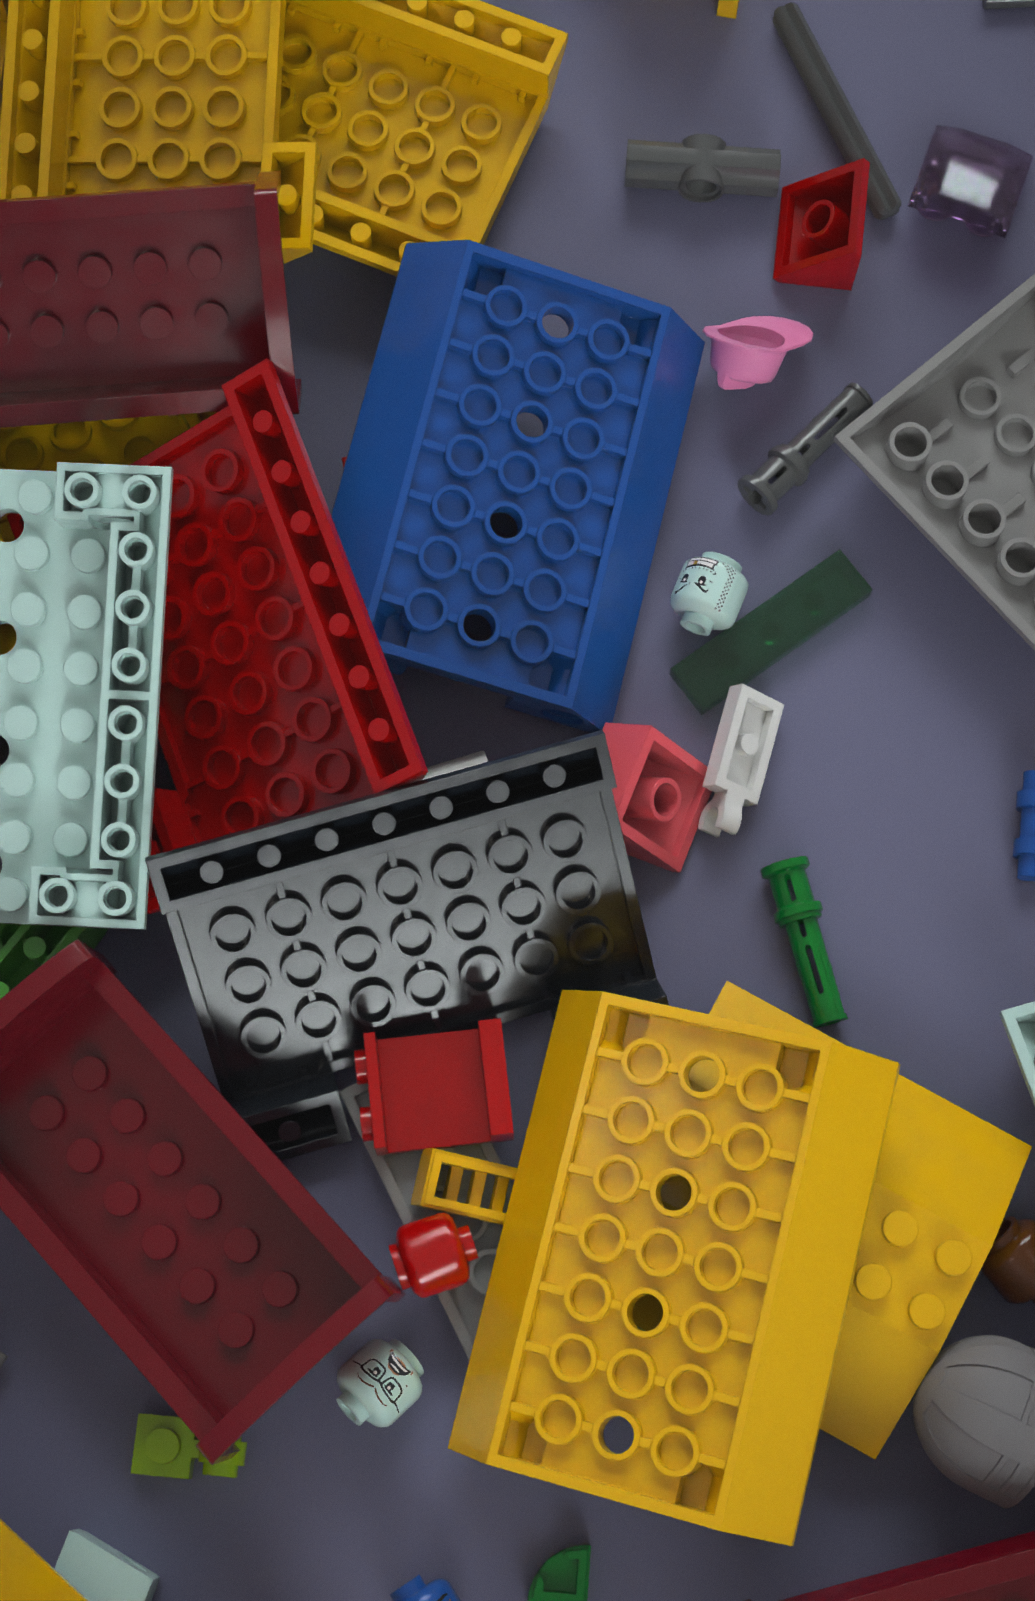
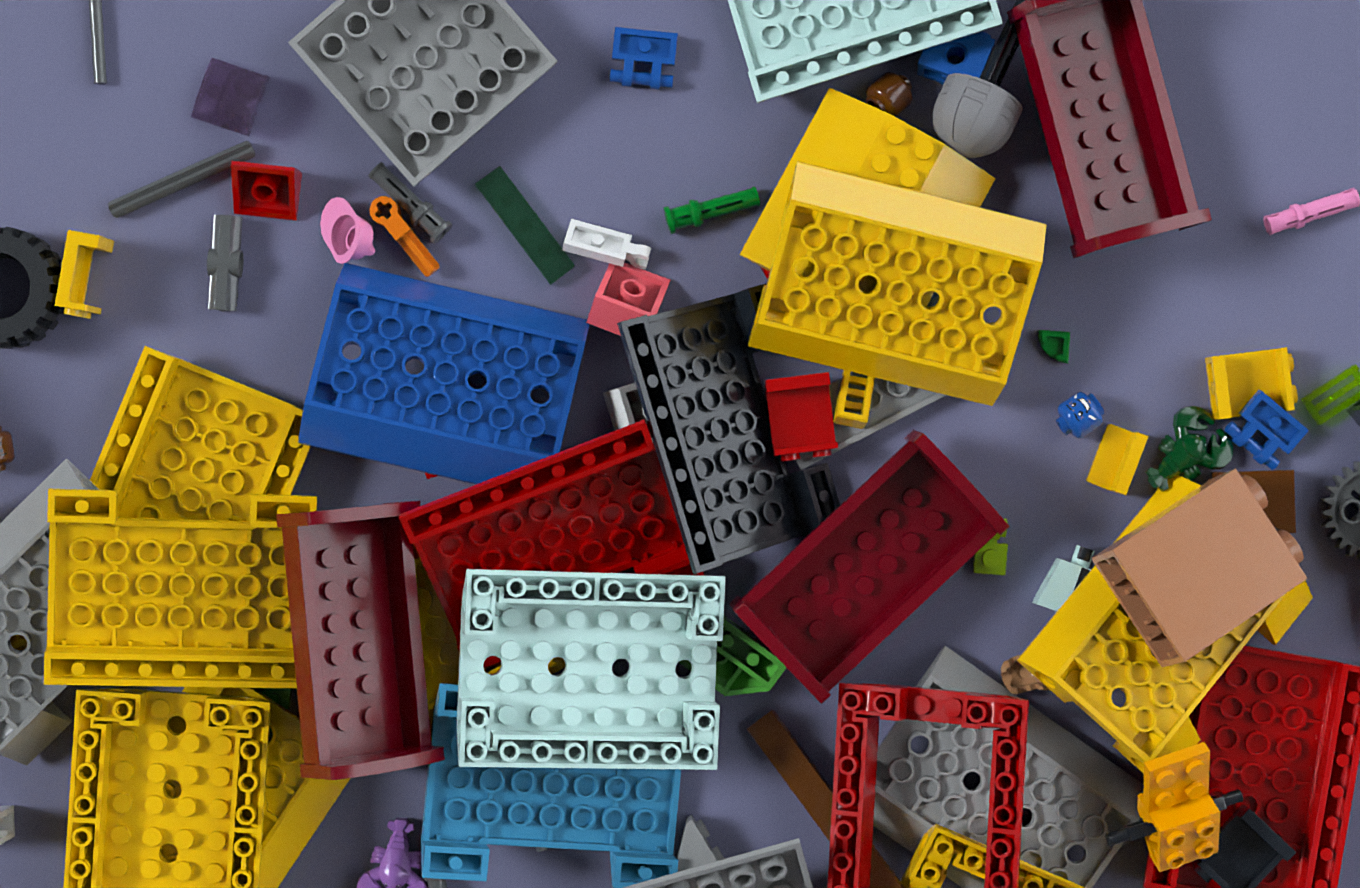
camera: 90 degrees left, 15 degrees up
(379, 1383) = (958, 443): light aqua head -> none
(433, 1255) = (893, 415): red head -> none
(709, 593) = (505, 261): light aqua head -> none
(758, 432) = (404, 235): none -> orange connector

